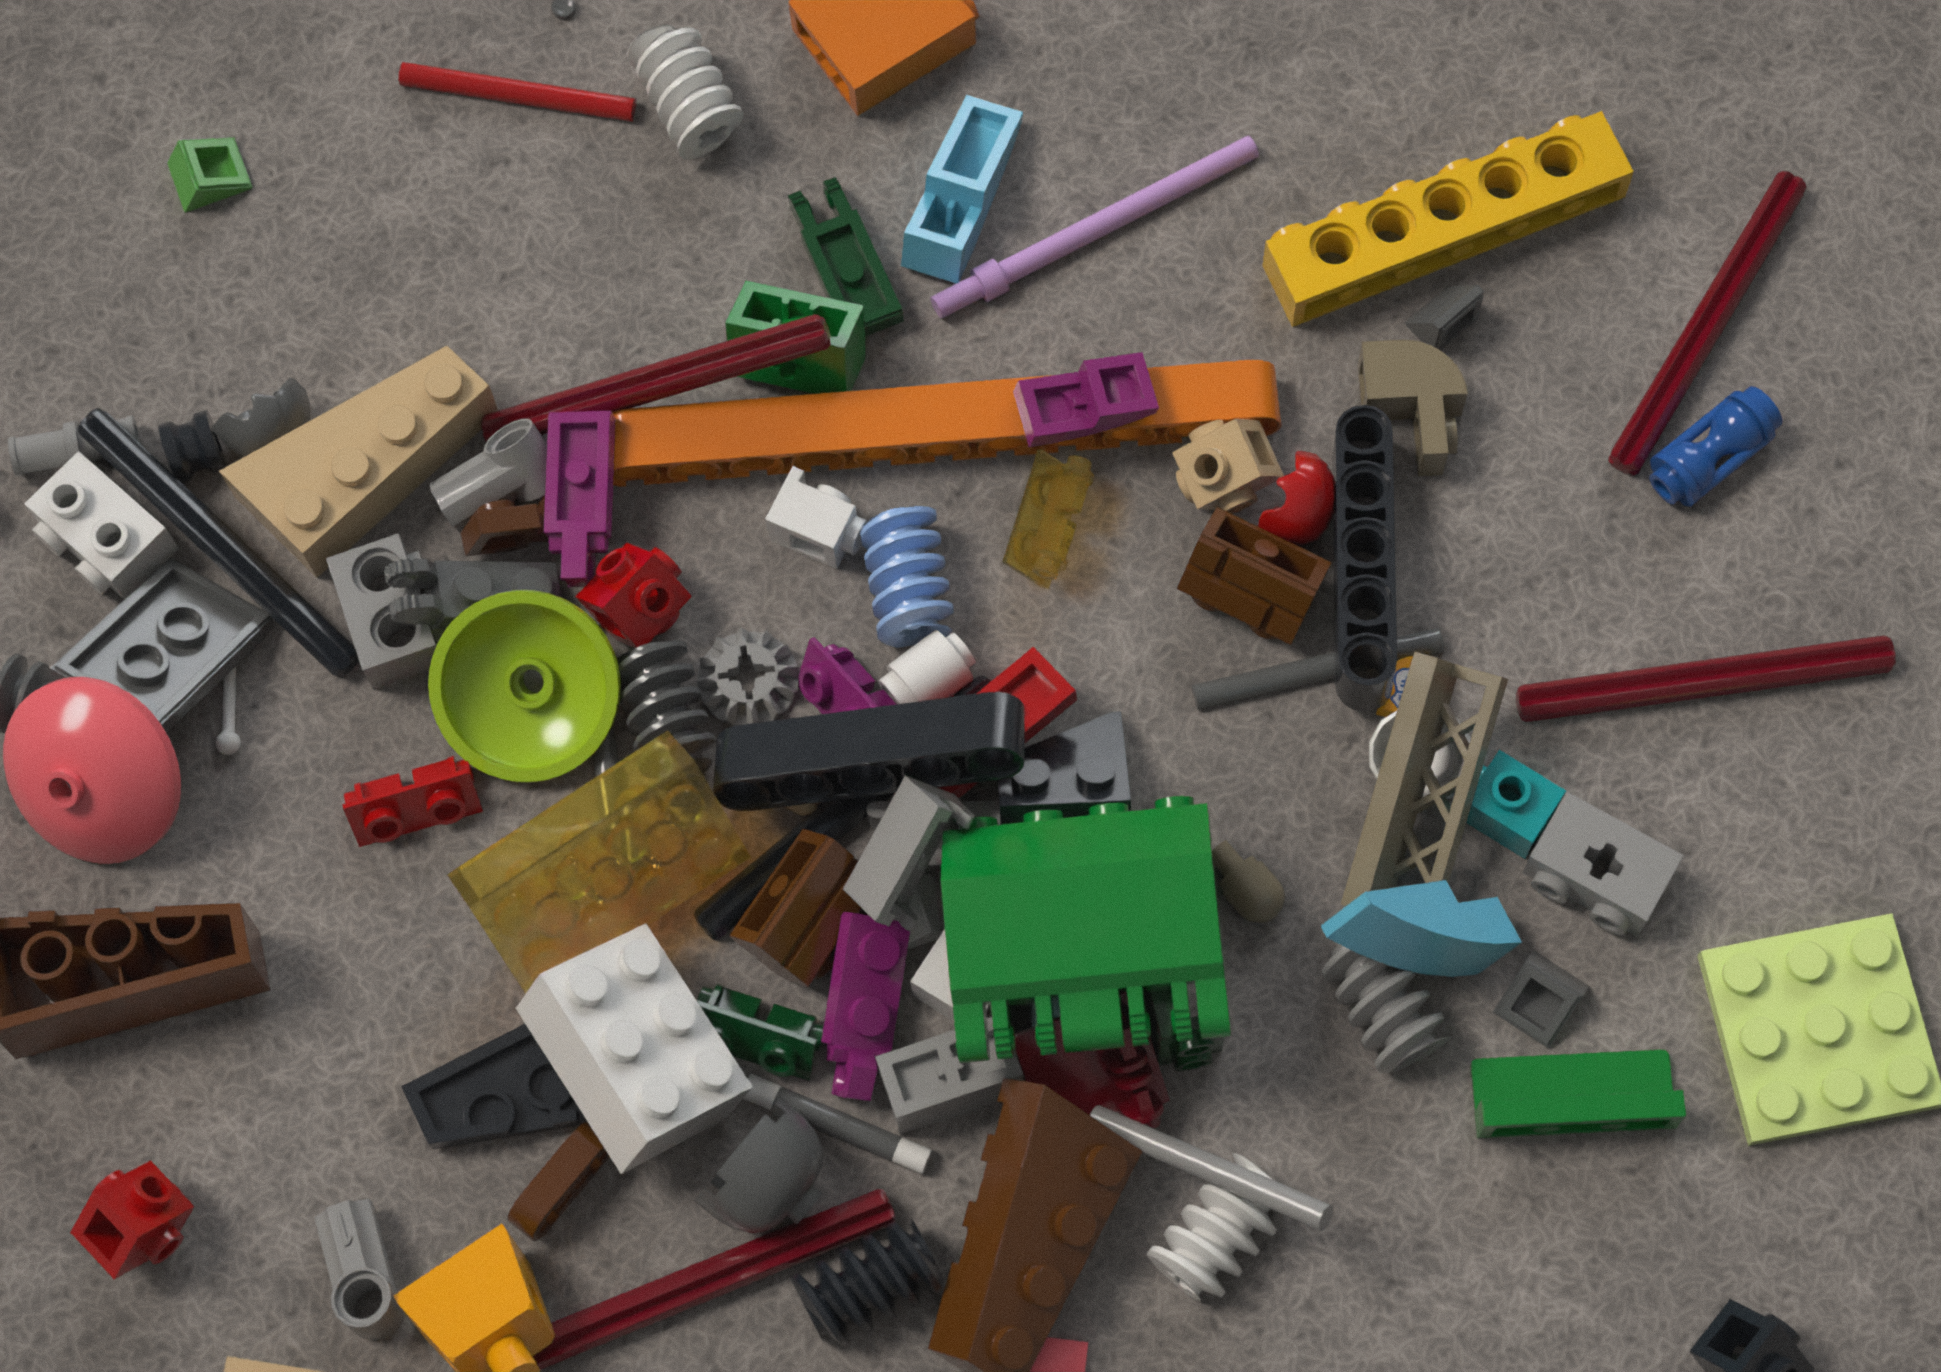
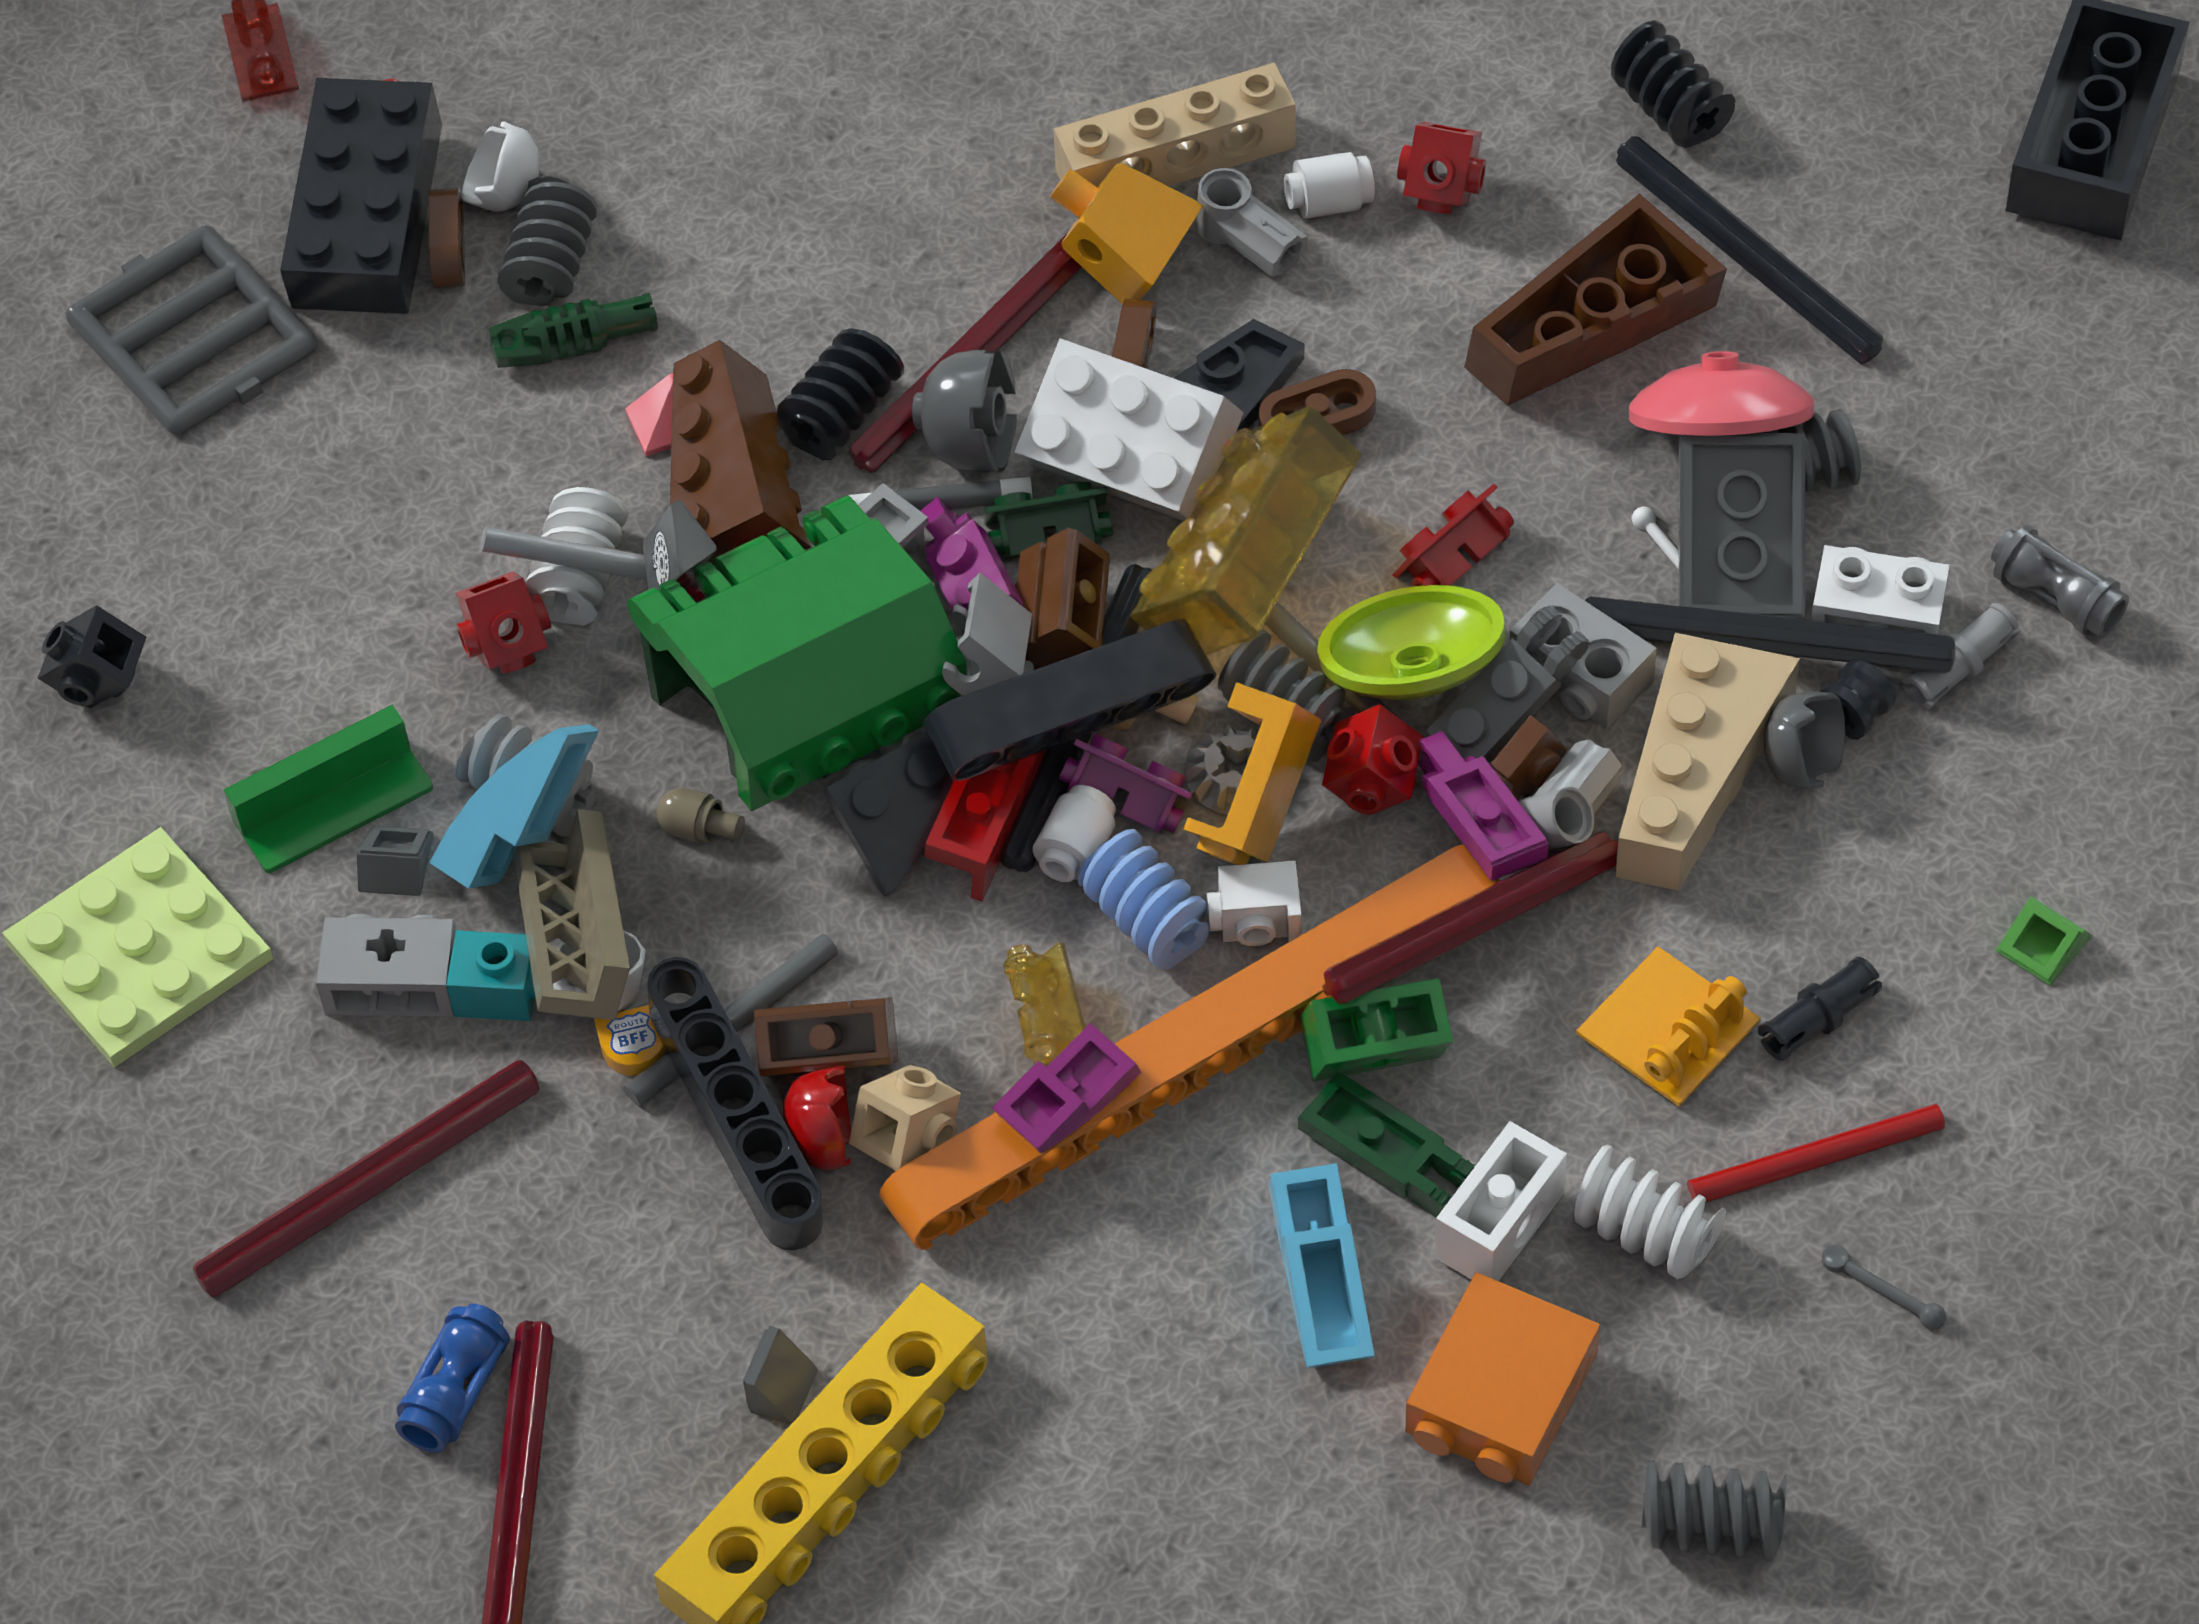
camera: 150 degrees right, 15 degrees down
(249, 1276) = (1329, 185): none -> white brick
(427, 197) = (1819, 1008): none -> black pin
(437, 1012) = (1324, 395): none -> reddish brown plate
(553, 252) = (1670, 1025): none -> light orange hinge
(780, 569) = (1267, 779): none -> light orange panel
(796, 142) = (1500, 1204): none -> white brick
(993, 278) = (1235, 1205): lavender bar -> none
(1155, 1084) = (676, 547): none -> dark grey slope
(1338, 1171) = (487, 607): none -> red brick
(1417, 384) = (778, 1287): dark tan brick -> none

